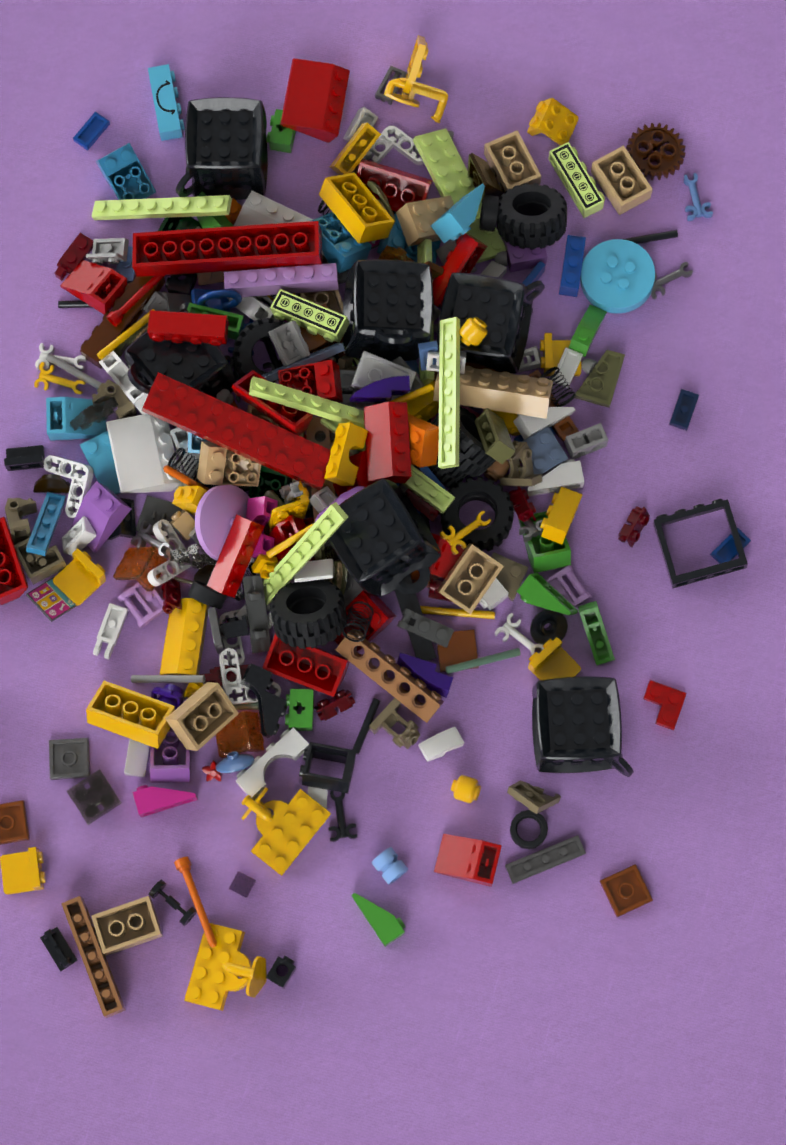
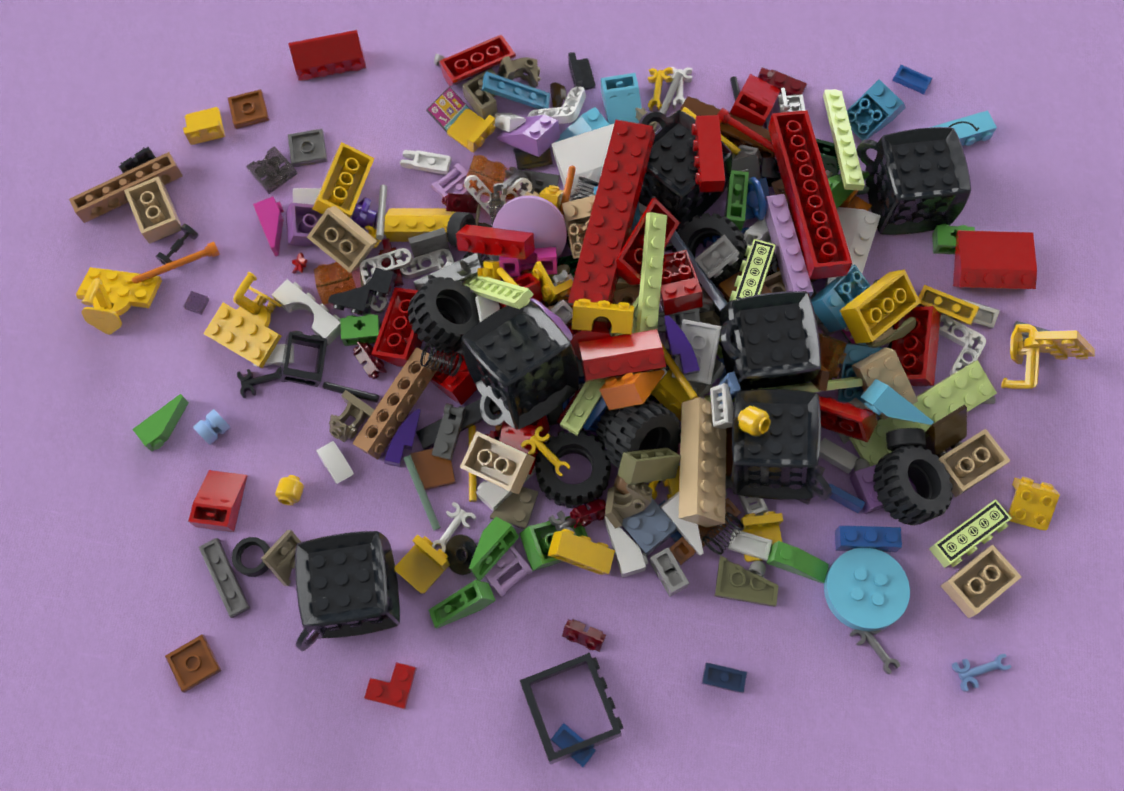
camera: 85 degrees right, 5 degrees down
(94, 413) = (619, 104): clear smoke brick -> none
(234, 627) = (432, 258): black brick -> none
(234, 762) = (303, 277): medium blue dish -> none
(281, 981) = (106, 341): black brick -> none
(449, 393) = (681, 404): yellowish green plate -> none
(653, 237) = (921, 624): black bar -> none
(666, 163) = (1016, 630): reddish brown gear -> none

